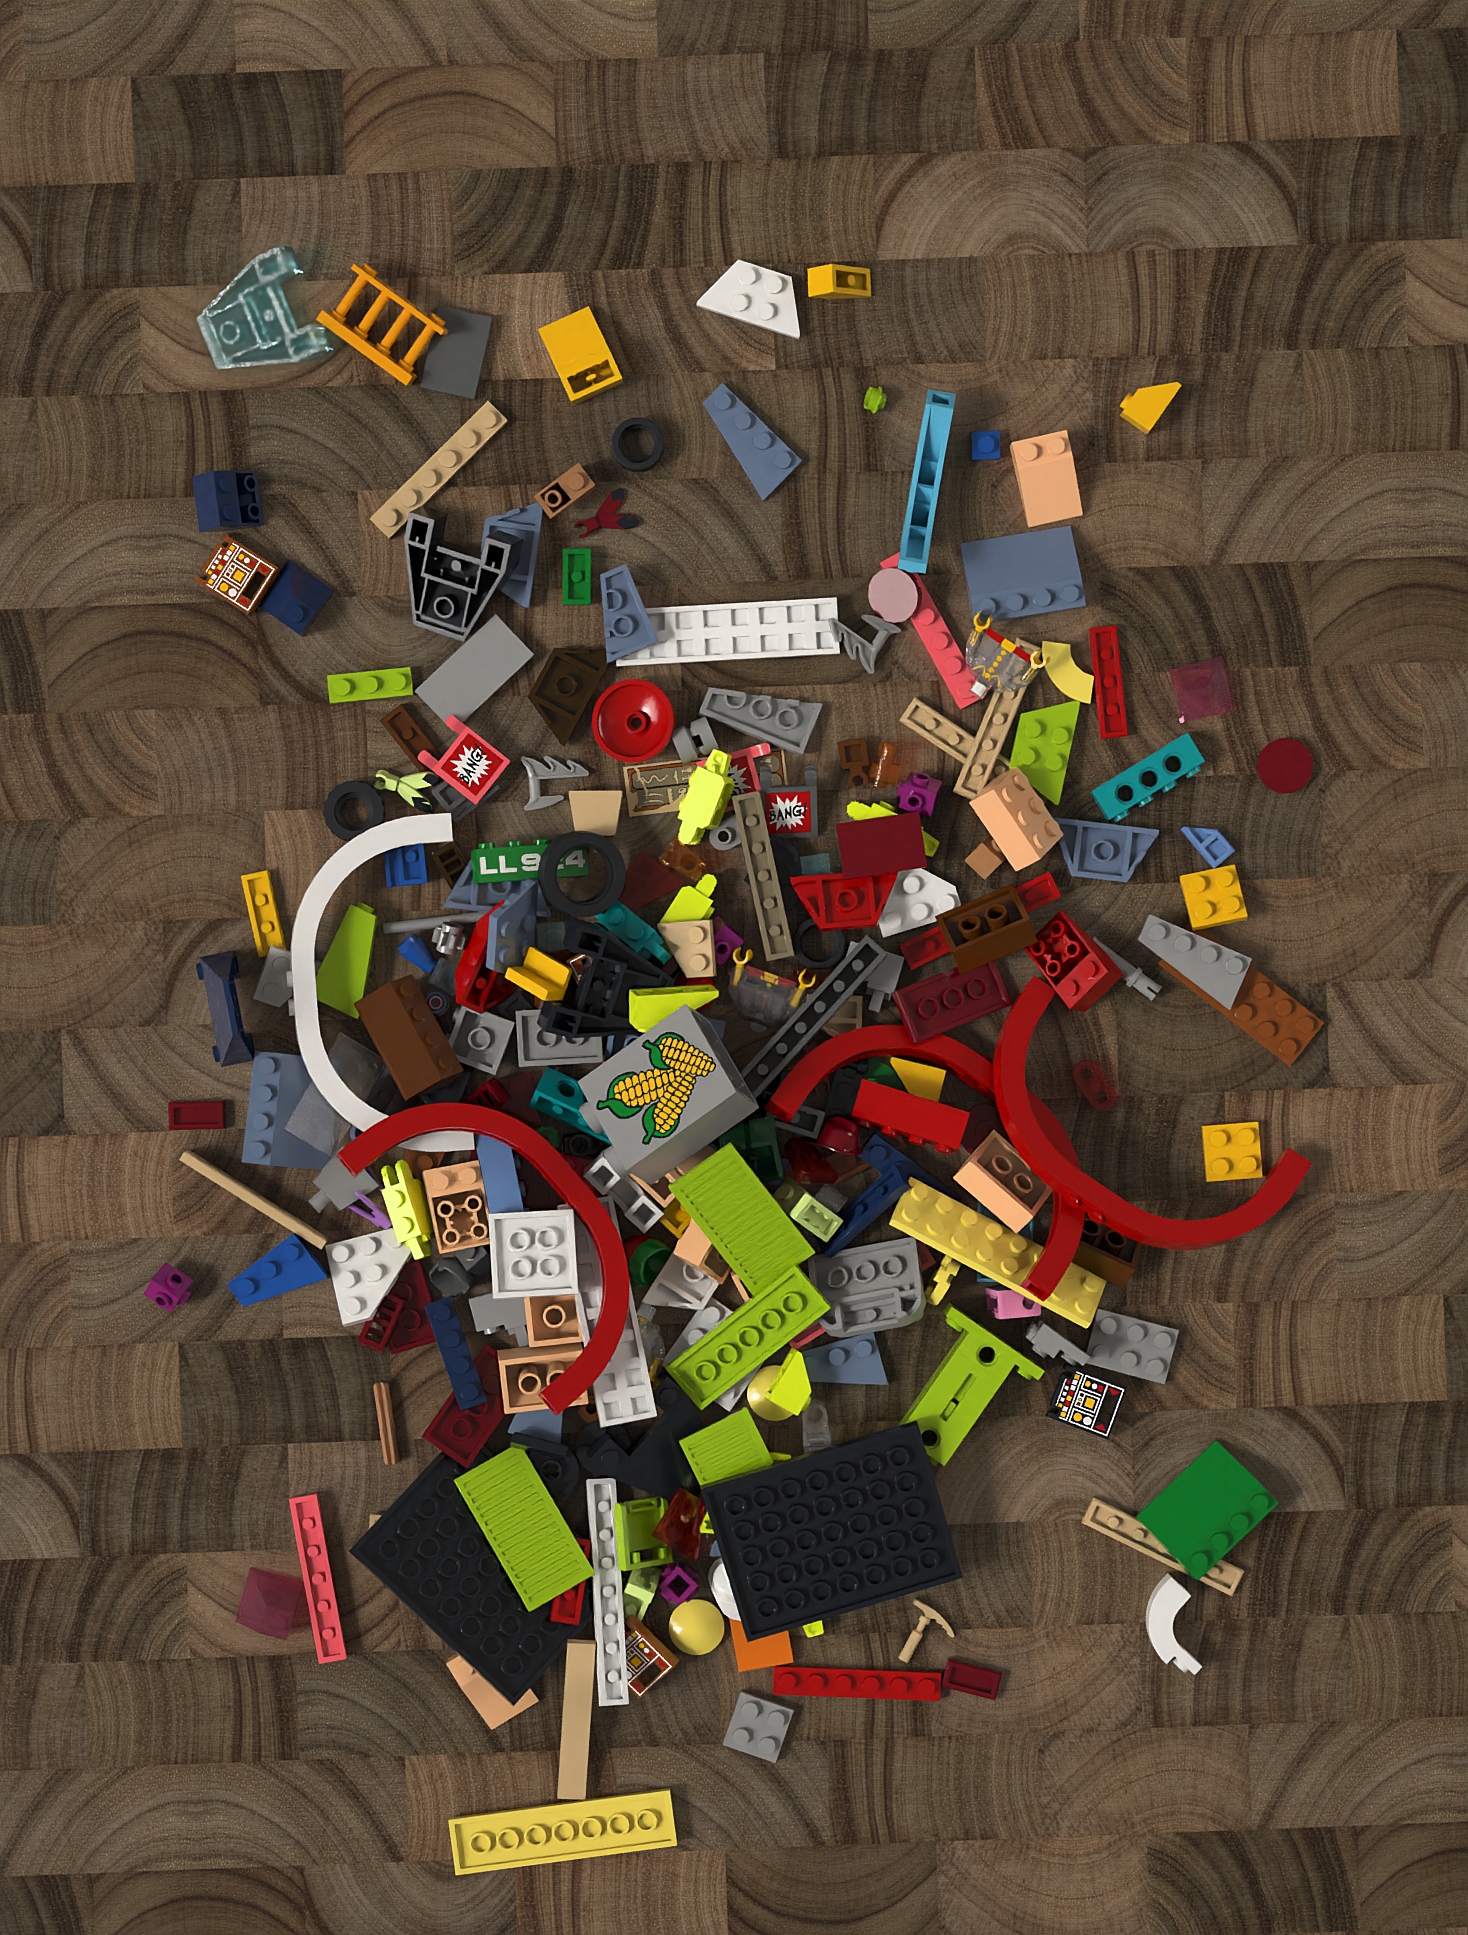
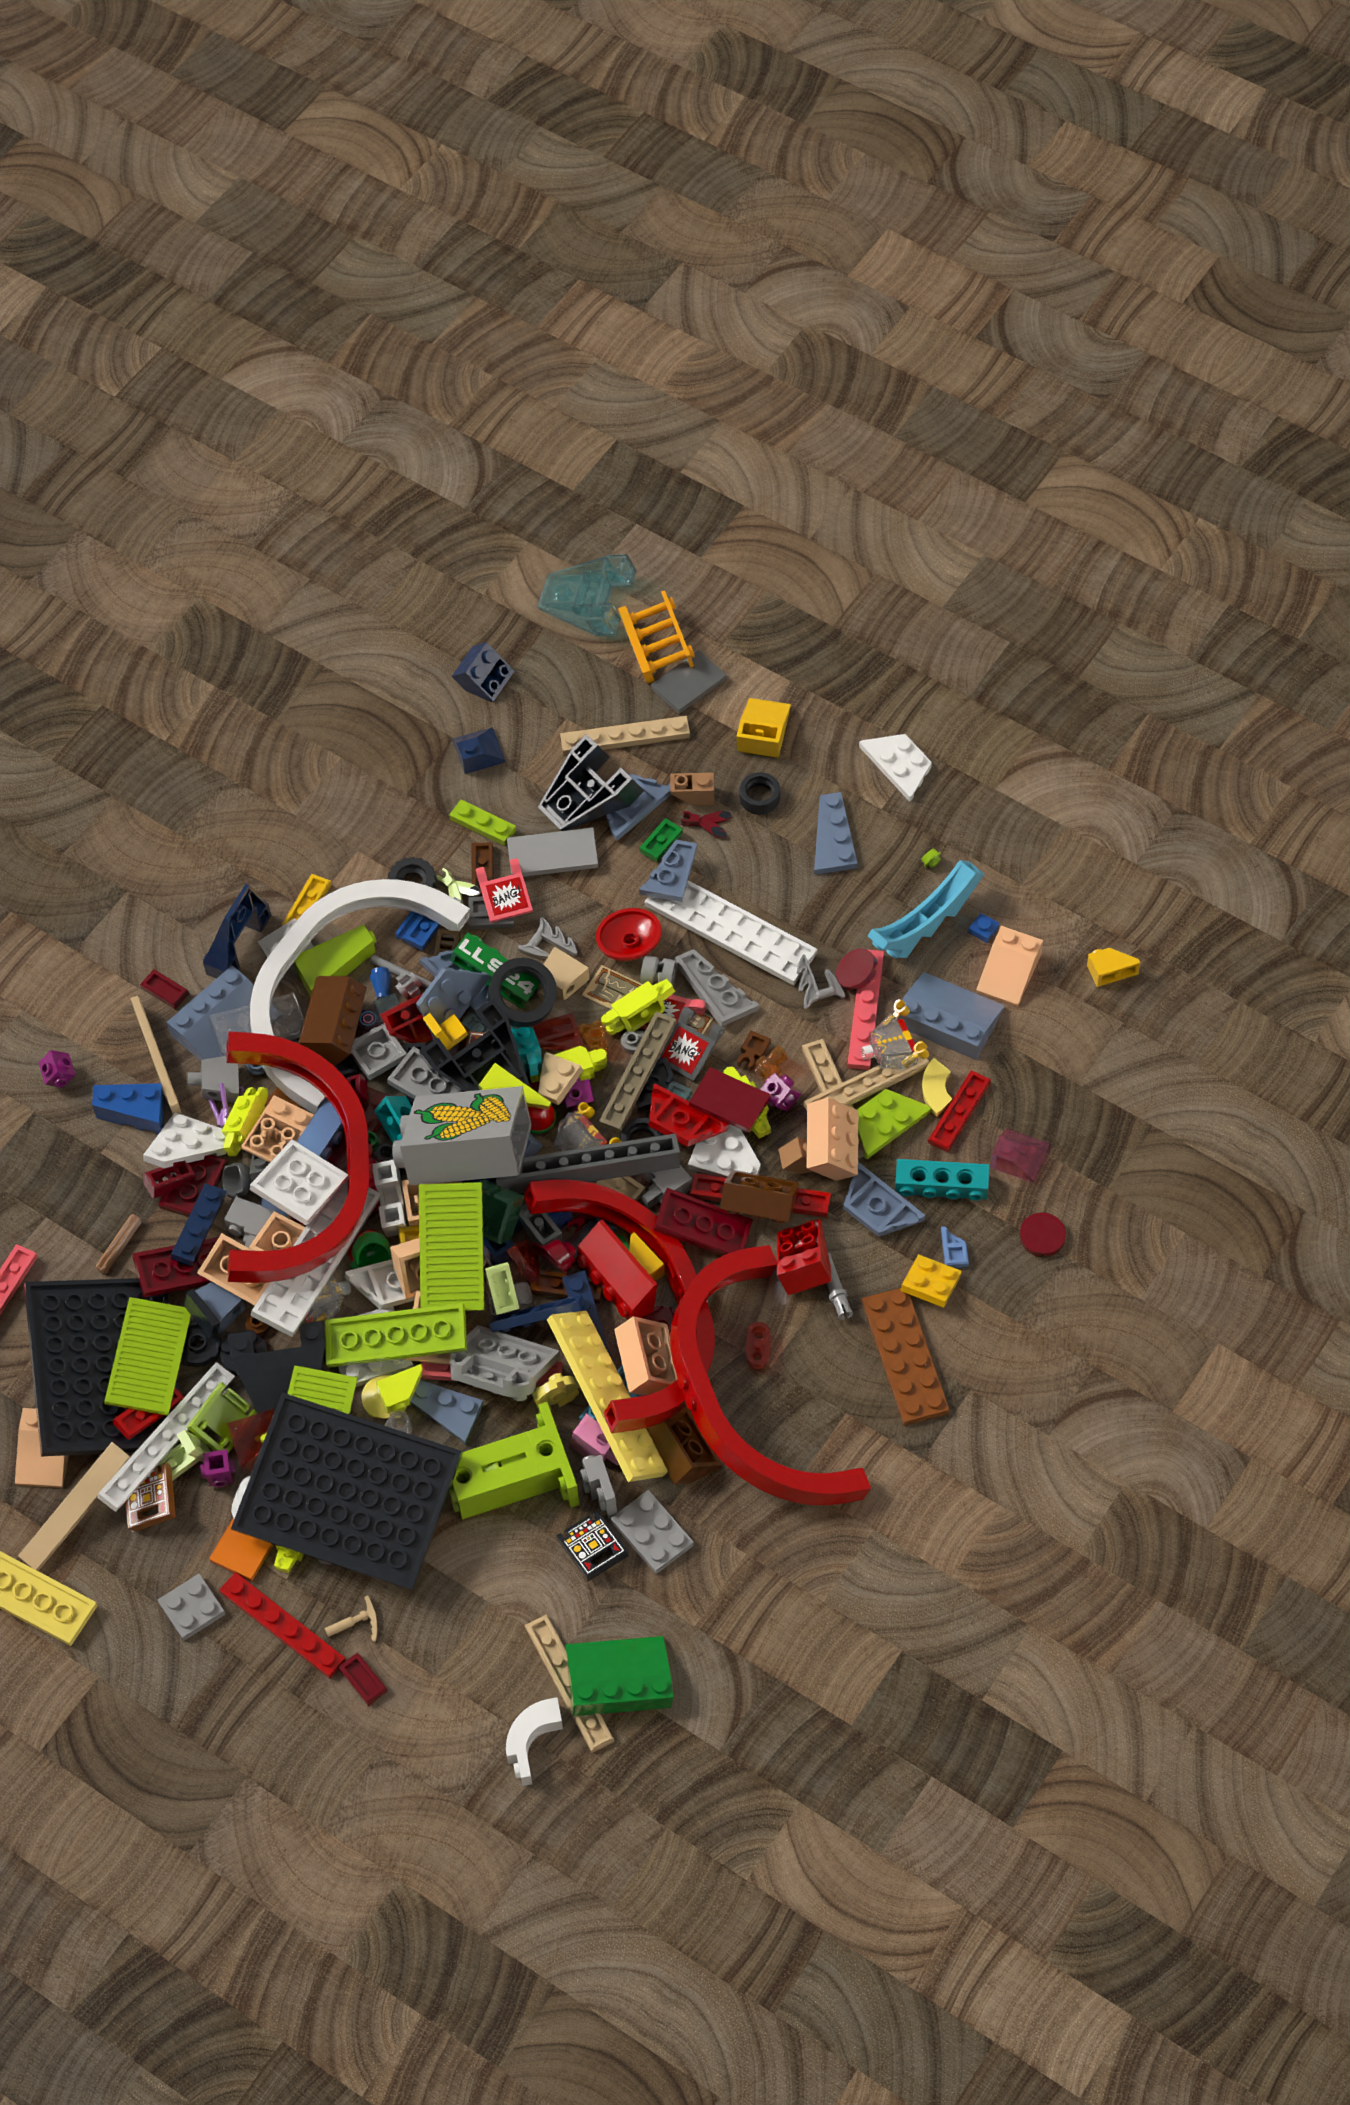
camera: 40 degrees right, 30 degrees down
(232, 571) = (451, 710): dark orange container -> none
(567, 687) = (602, 896): dark brown wing -> none
(696, 1627) = (206, 1511): light yellow dish -> none
(839, 282) = (959, 781): yellow slope -> none
(1202, 961) = (893, 1312): light grey wing -> none
(1232, 1151) = (821, 1450): yellow plate -> none

